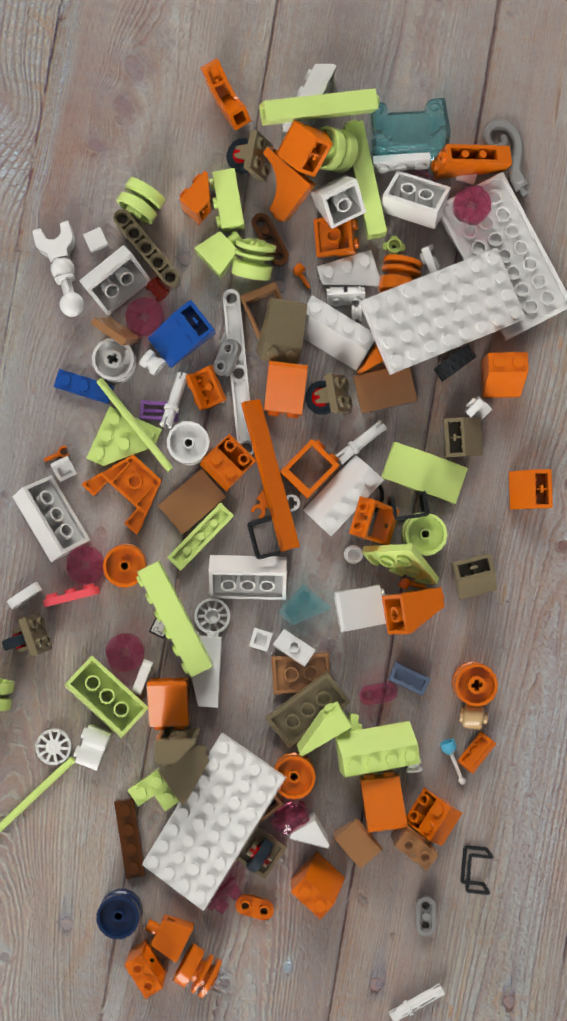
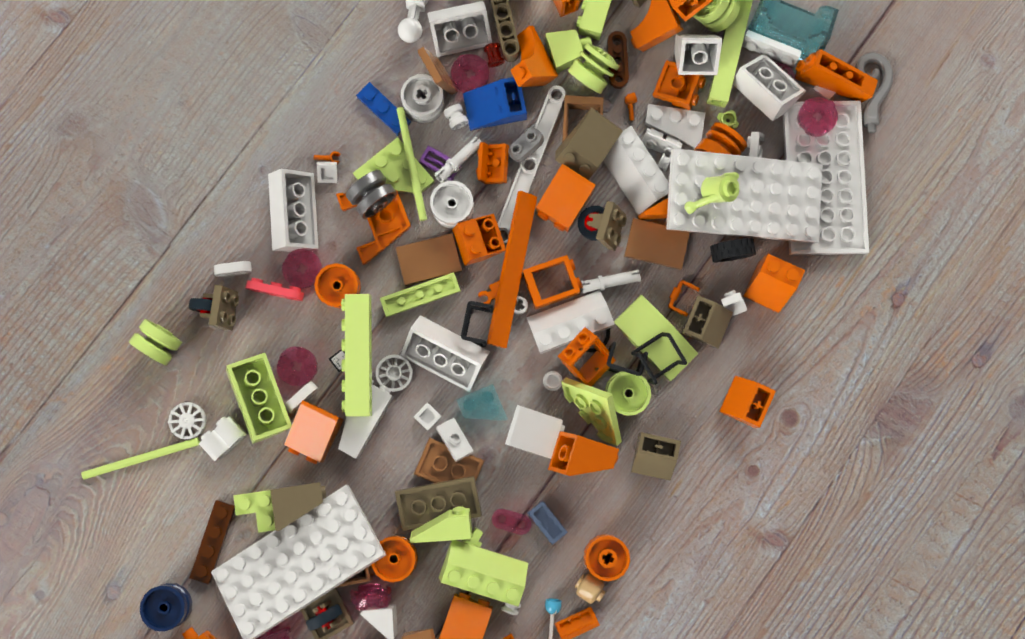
camera: 25 degrees right, 5 degrees down
(113, 471) = (371, 194): none -> flat silver wheel
(173, 744) = (296, 470): dark tan slope -> none
(199, 280) = (535, 63): none -> orange arch
(405, 583) = (588, 431): orange hand -> none
(417, 319) = (716, 190): none -> yellowish green piece
(422, 426) = (675, 293): none -> orange piece
(440, 512) = (652, 380): none -> black piece

